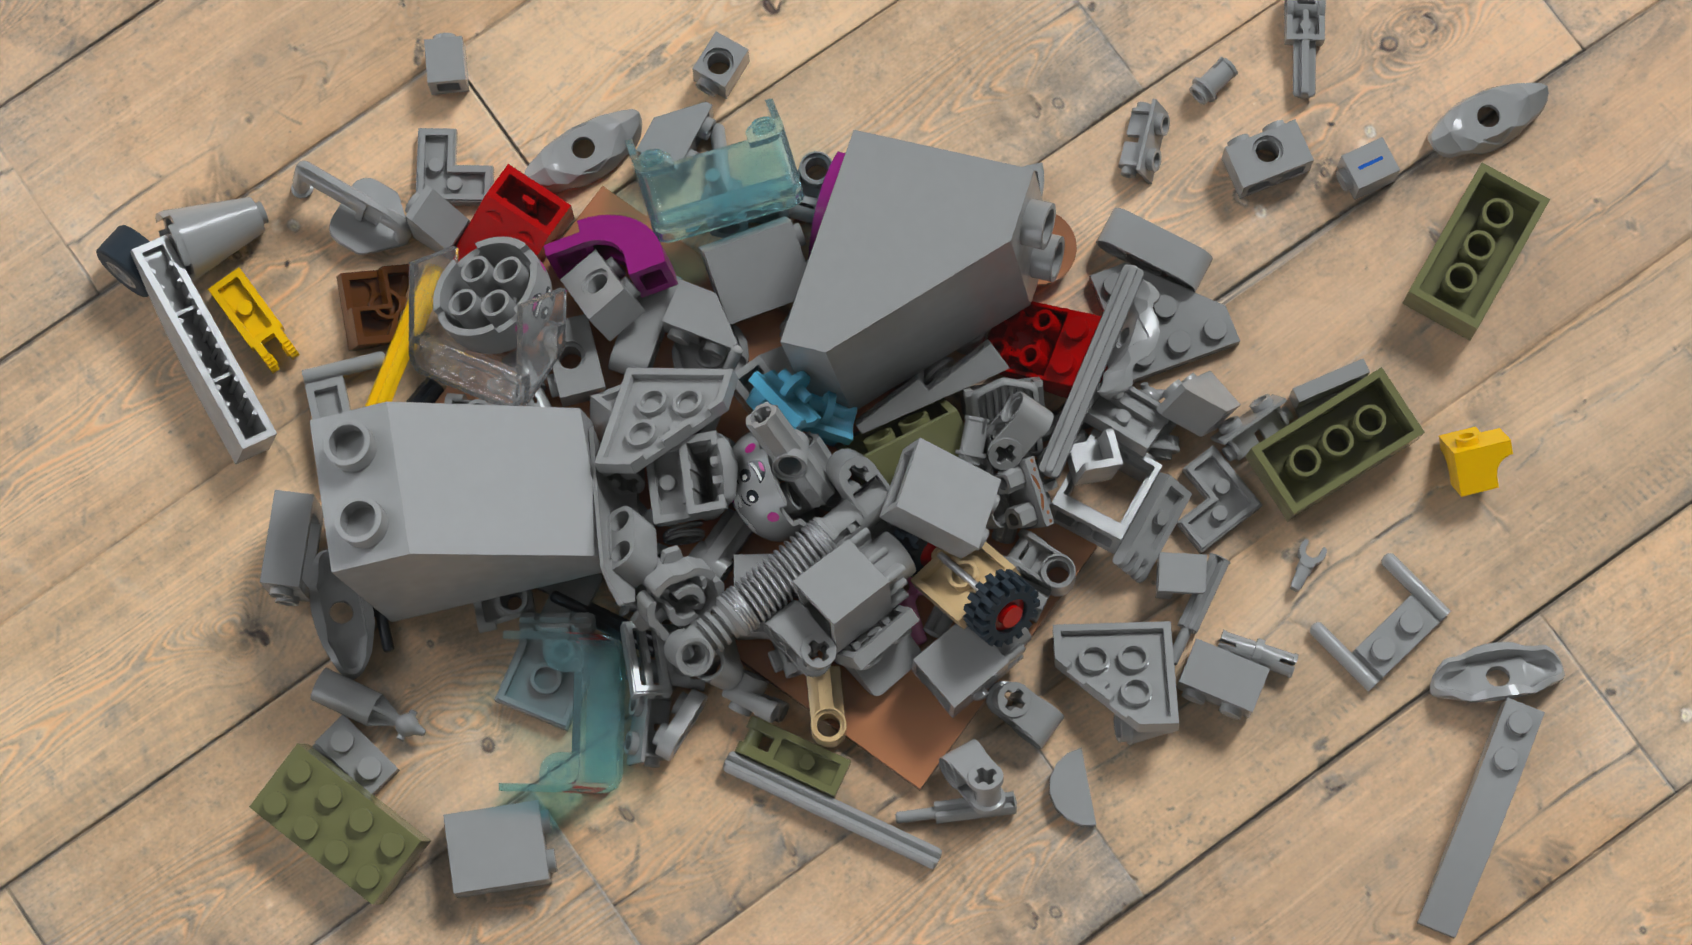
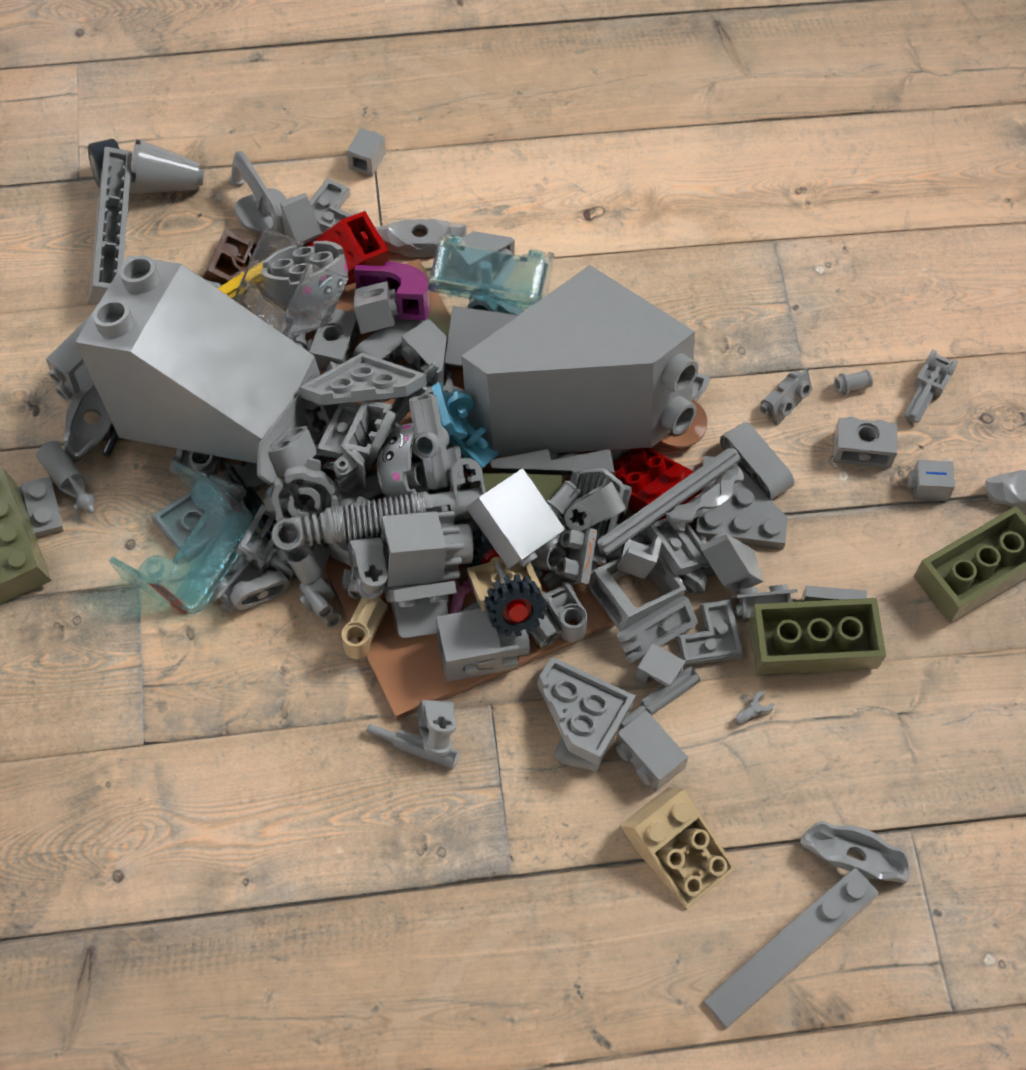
camera: 25 degrees right, 15 degrees down
(251, 316) = (156, 227): yellow hinge -> none
(499, 848) = (89, 607): light grey brick -> none
(713, 534) = (349, 470): none -> light grey hinge
(725, 51) = (535, 227): light grey brick -> none
(794, 757) = (323, 652): olive plate -> none
(832, 810) = (328, 701): light grey axle -> none
(1029, 714) = (499, 708): light grey piece -> none
(1071, 790) = (501, 772): light grey tile -> none
(1259, 653) = (696, 758): light grey pin -> none
(1305, 768) = (678, 845): none -> tan slope
(1393, 637) = (793, 789): light grey plate -> none
(1474, 458) = (913, 696): yellow brick -> none

